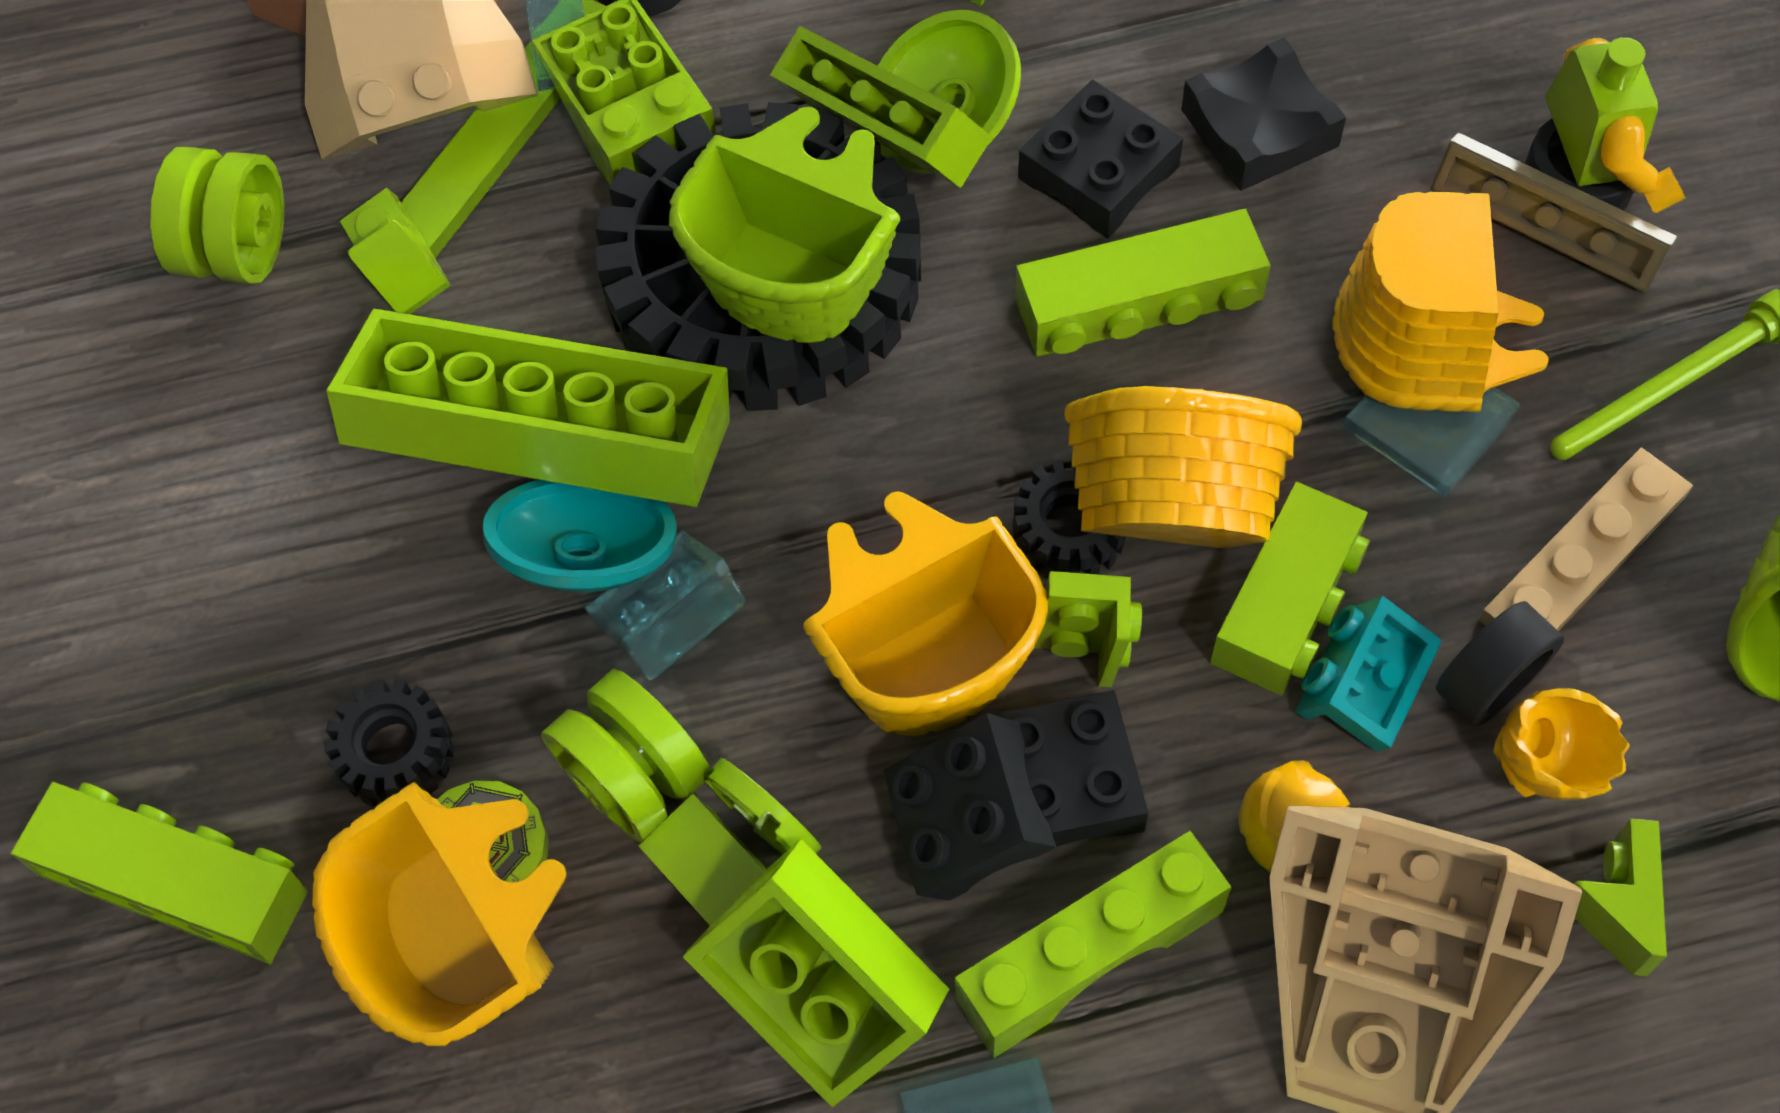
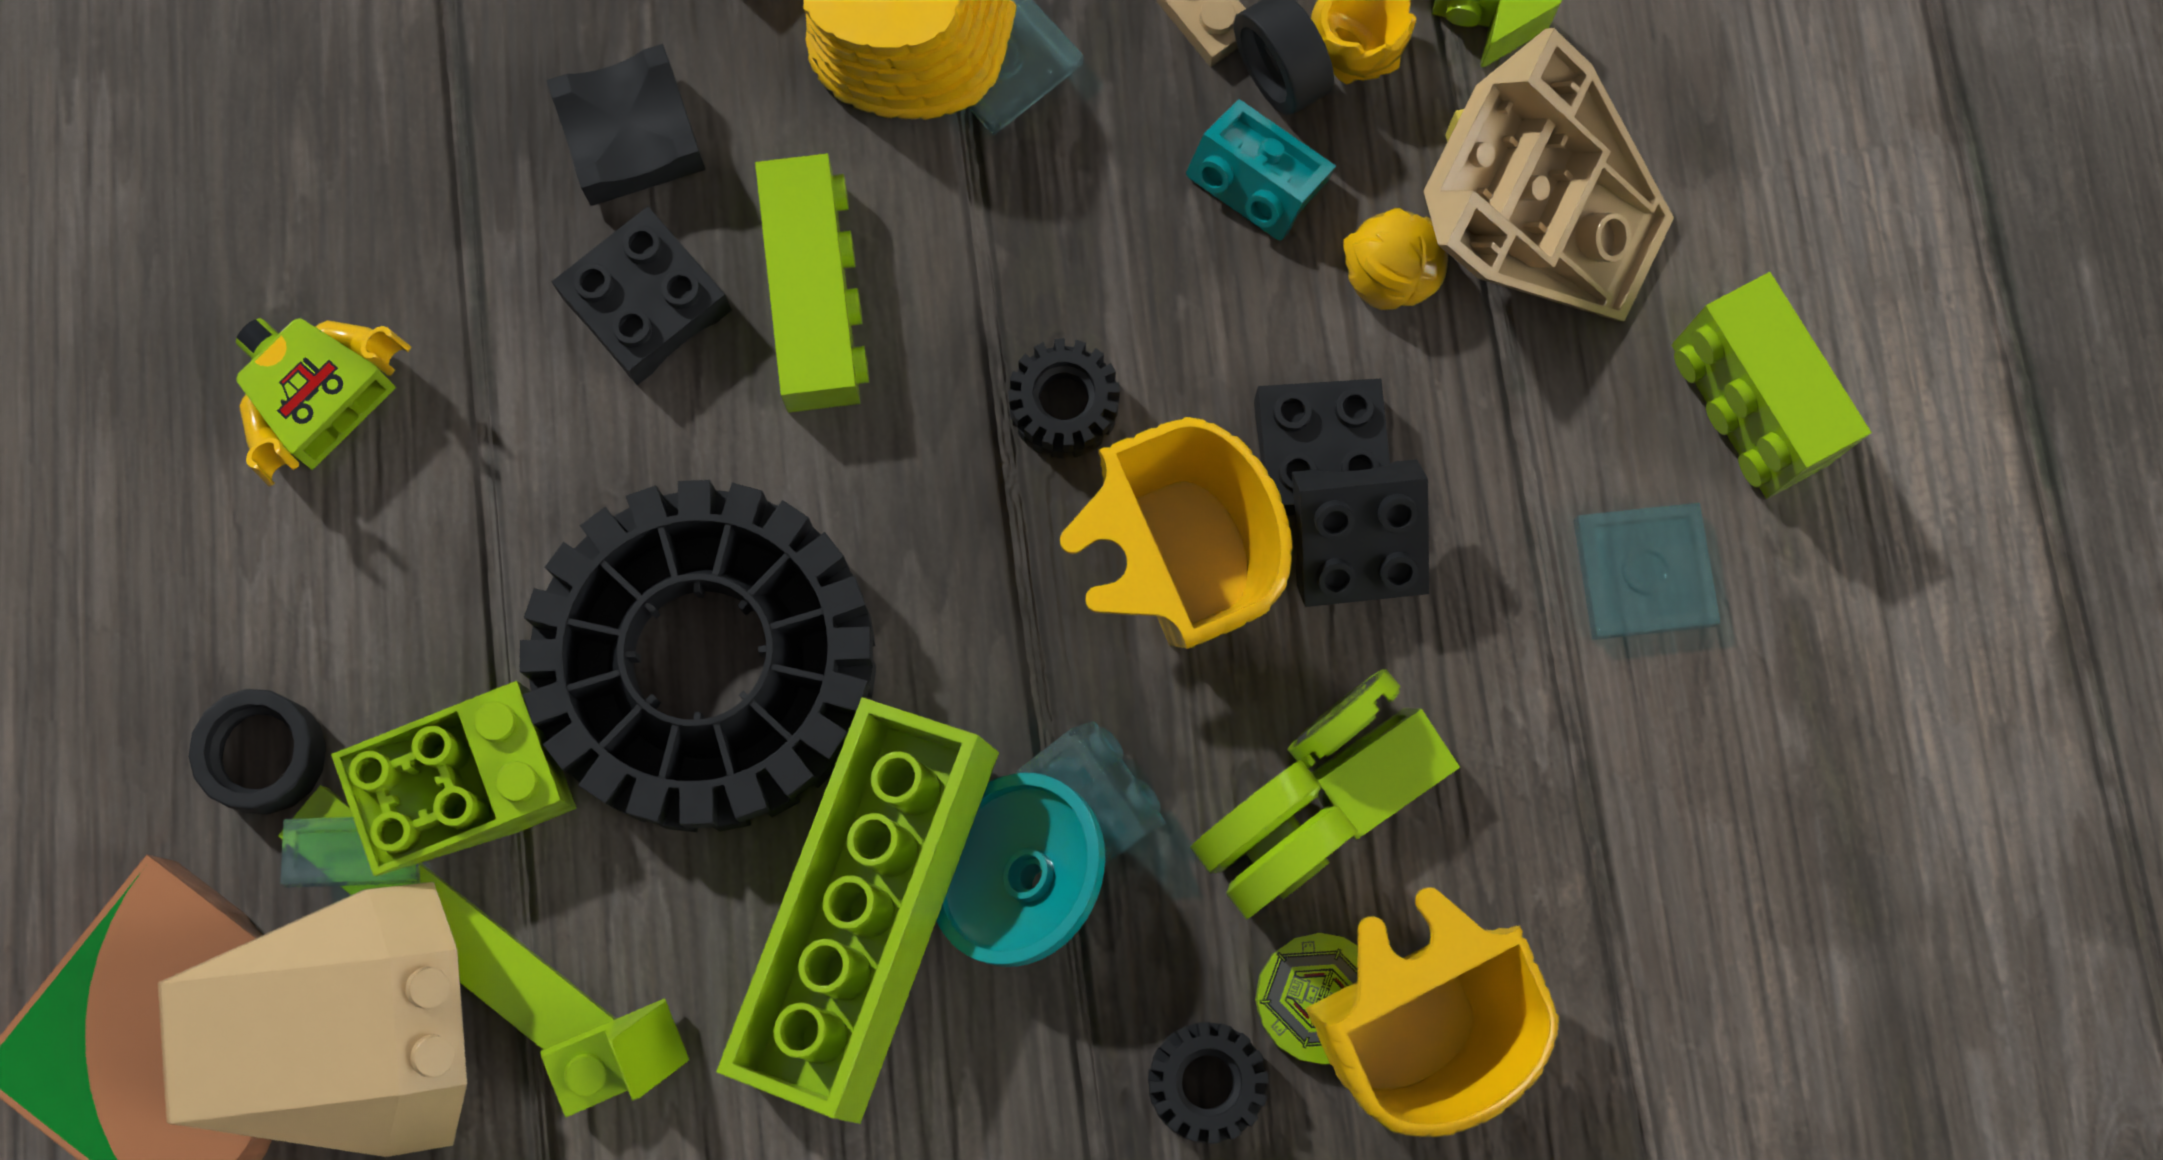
camera: 90 degrees left, 15 degrees up
(785, 234) = (751, 602): lime piece -> none
(818, 974) = (1503, 684): lime slope -> none
(889, 107) = (555, 501): lime brick -> none
(962, 61) = (512, 466): lime dish -> none
(1052, 963) = (1515, 489): lime arch -> none
(1091, 616) = (1205, 377): lime bracket -> none
(1180, 464) = (1059, 277): yellow piece -> none
(1291, 590) = (1169, 214): lime brick -> none

